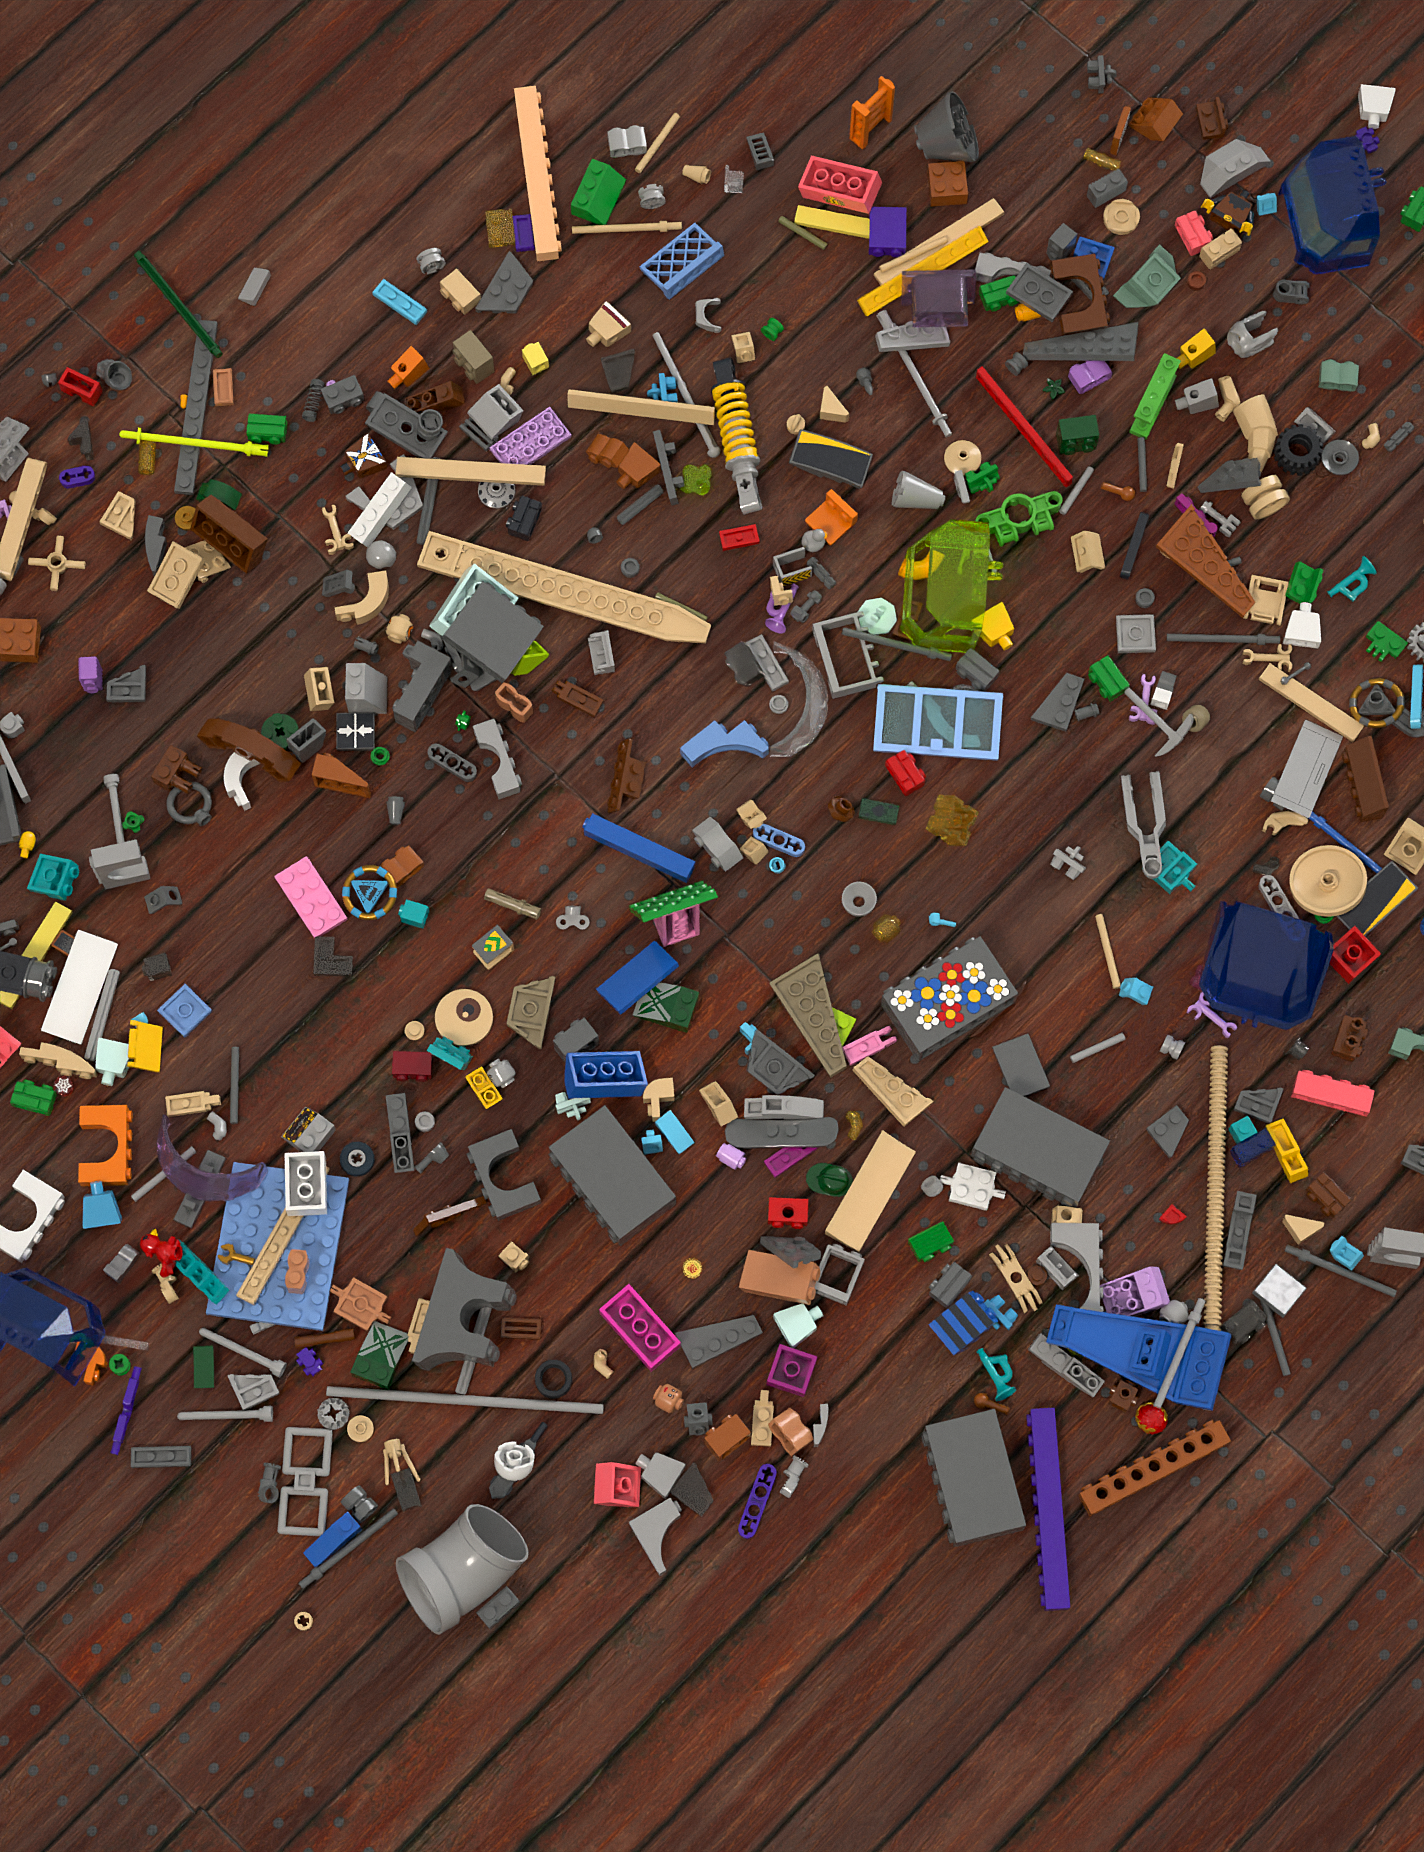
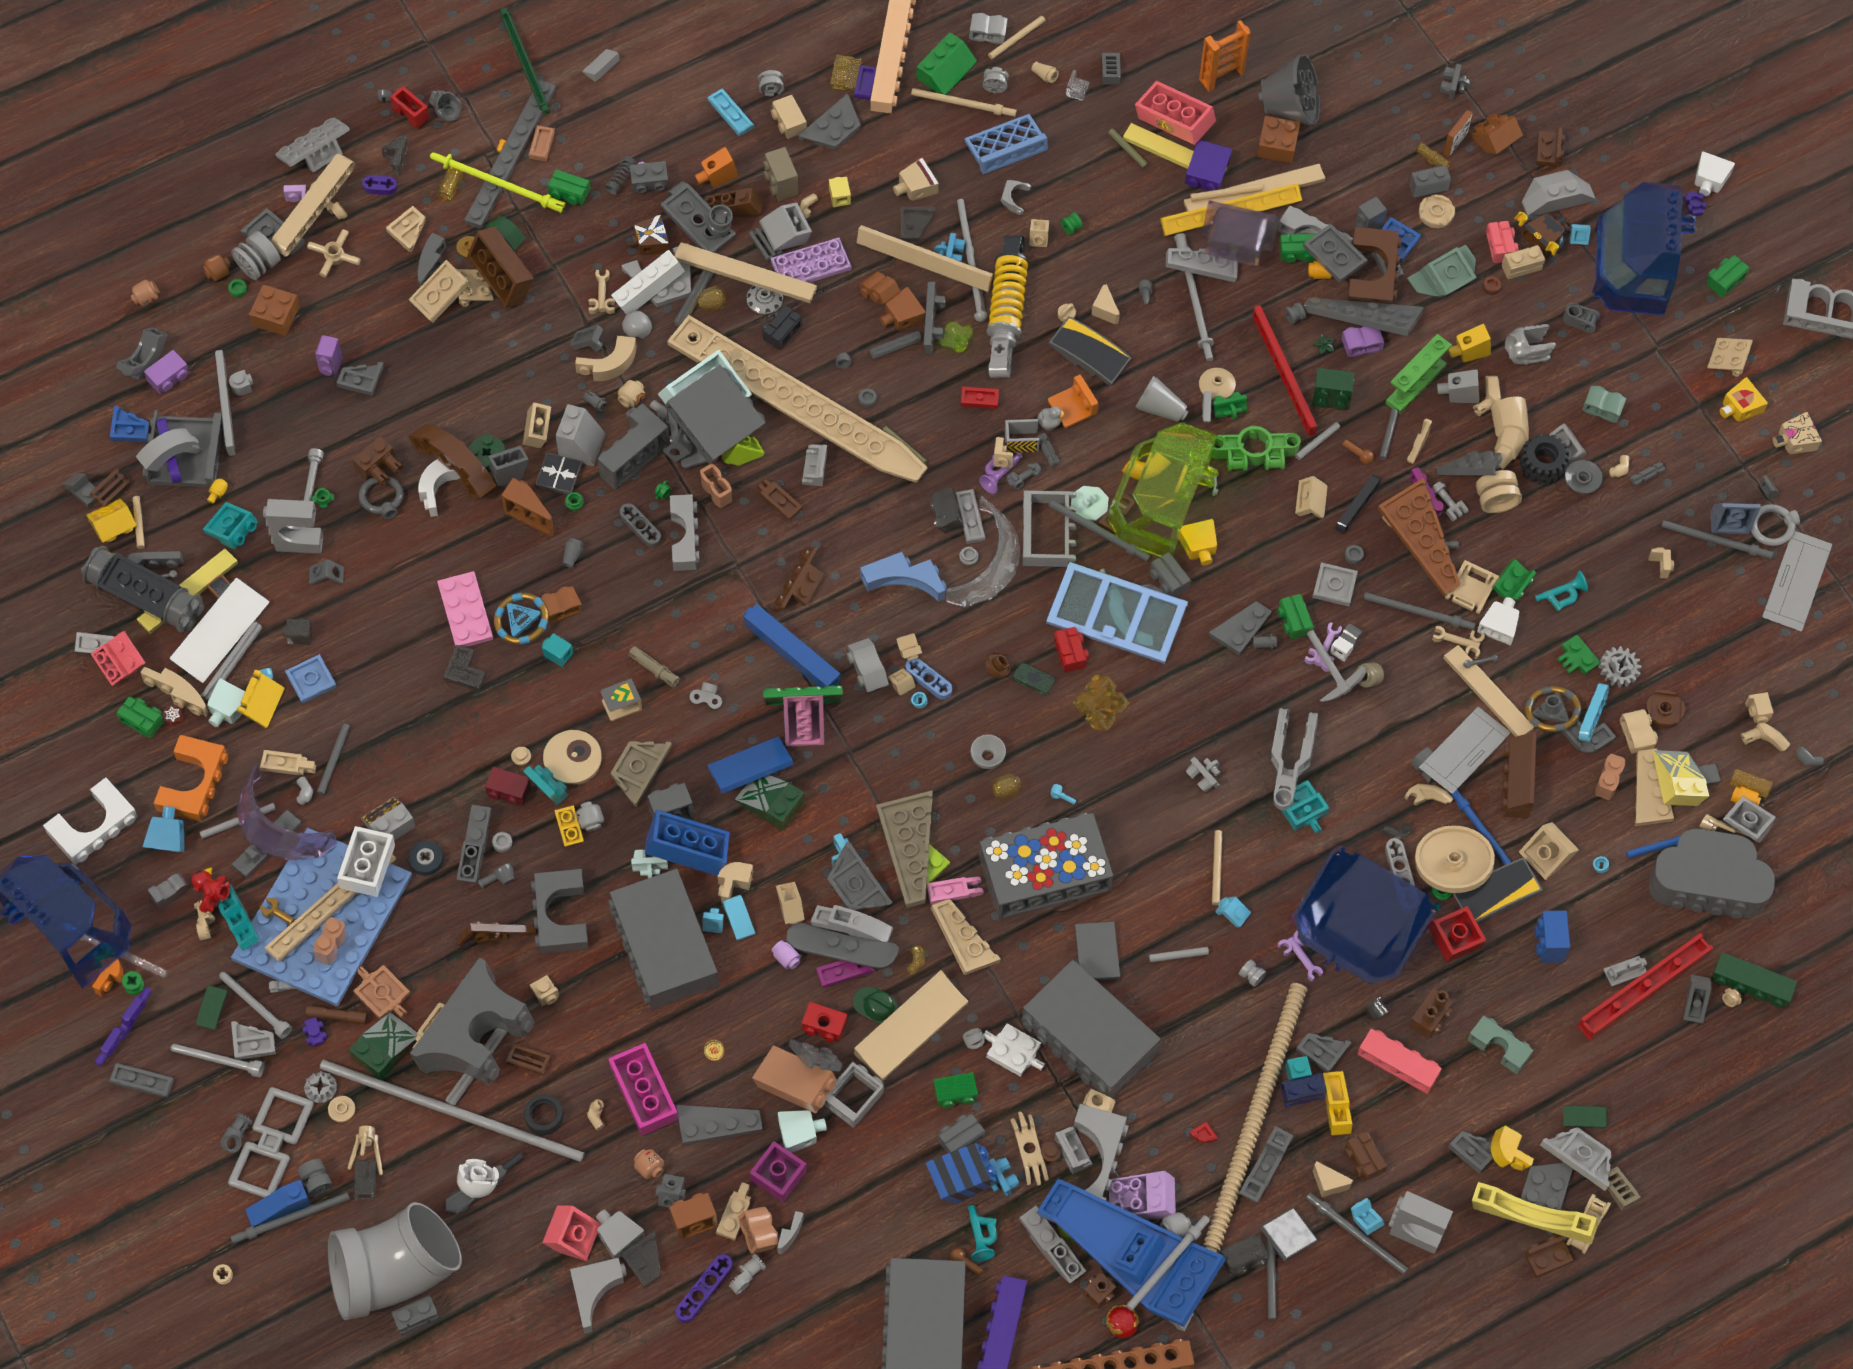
camera: 15 degrees right, 10 degrees down
(446, 507) = (711, 299): none -> clear yellow head
(1168, 1130) = (1225, 1051): dark grey wing -> none

